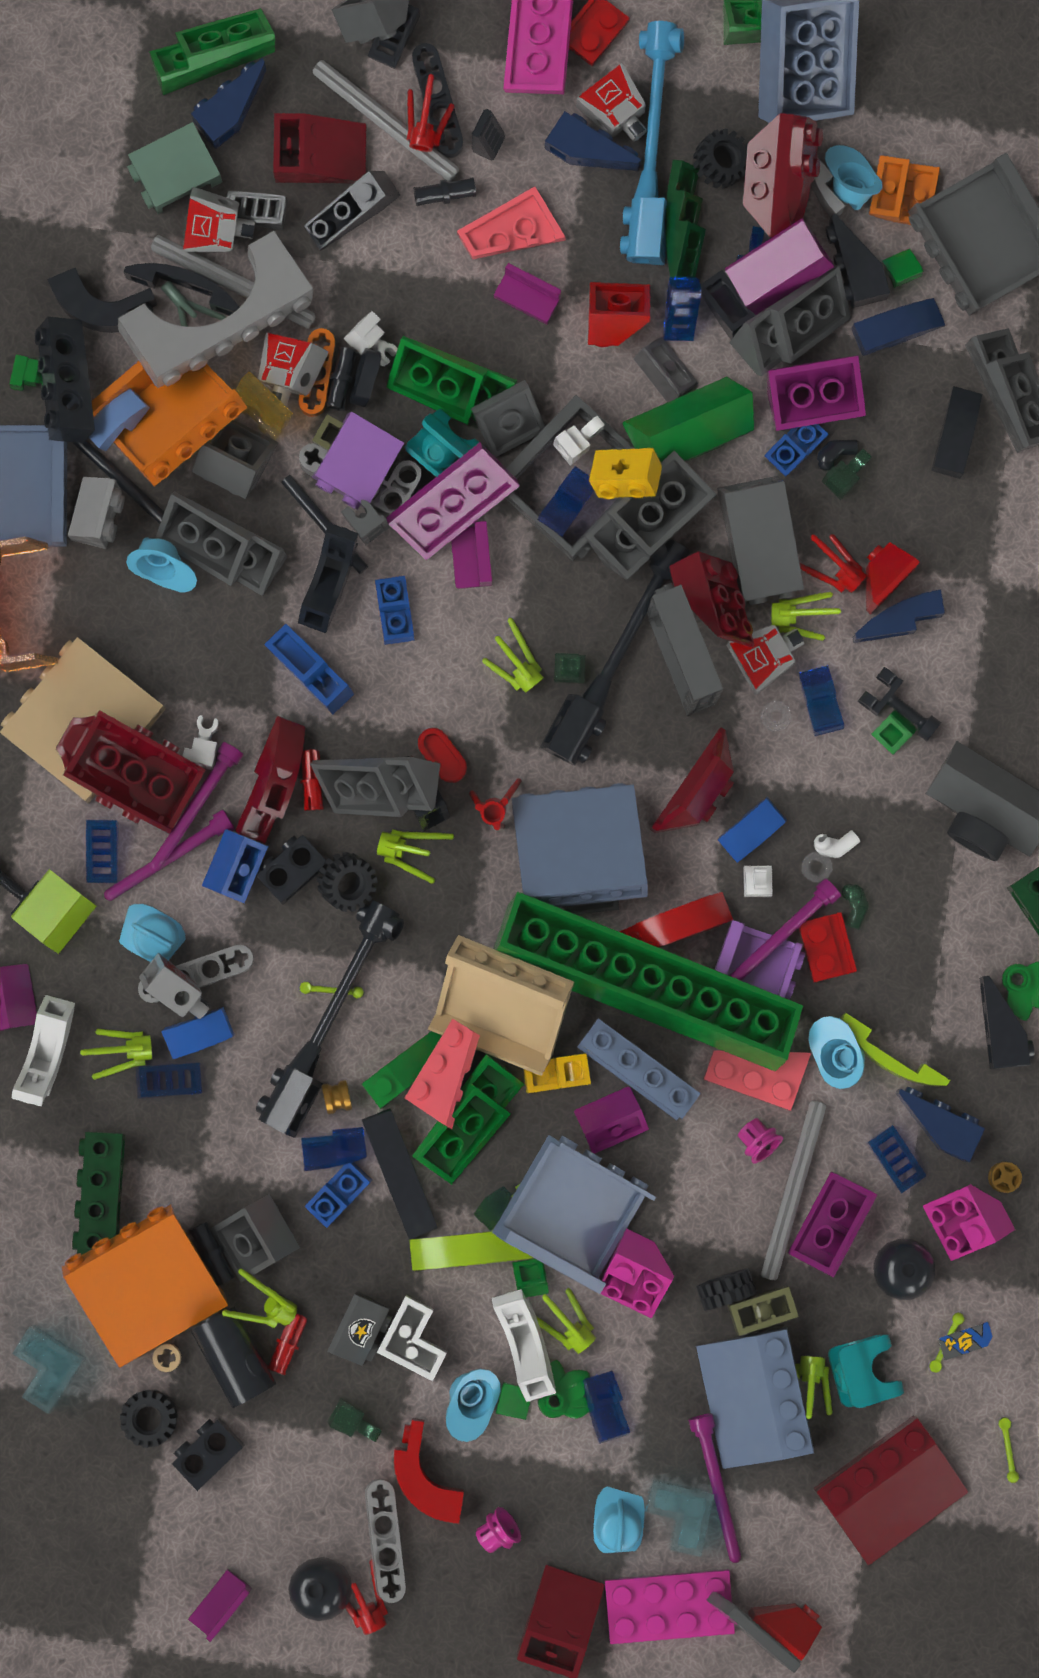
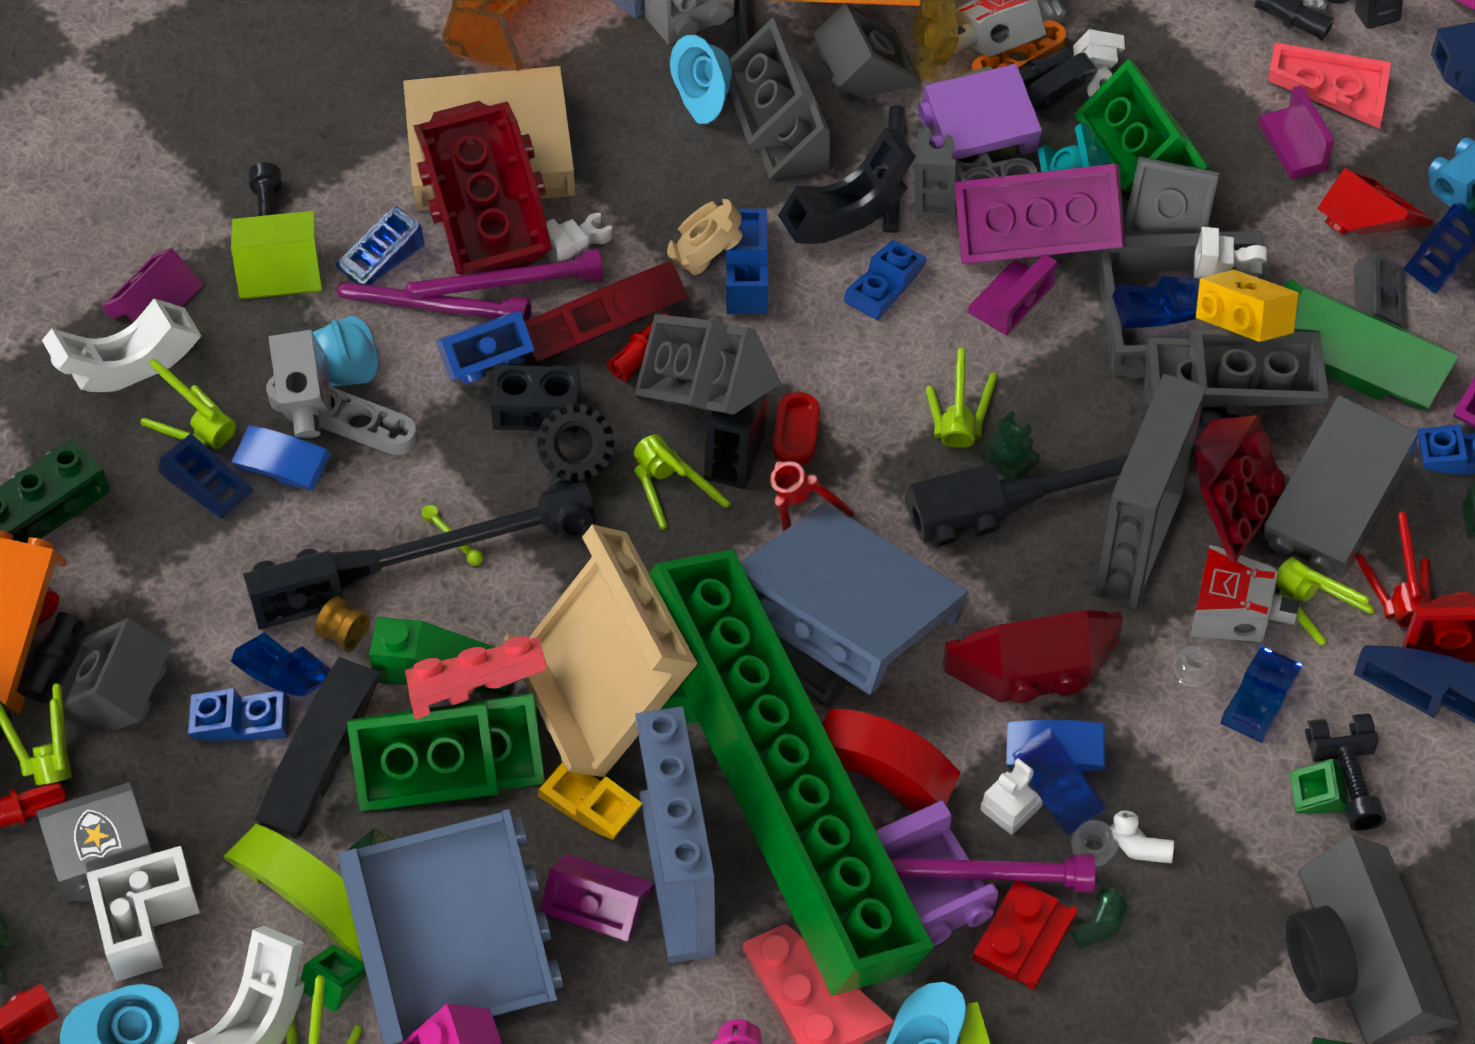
camera: 50 degrees right, 30 degrees down
(292, 677) = (705, 236): none -> tan plate
(774, 854) = (1060, 781): none -> clear blue slope

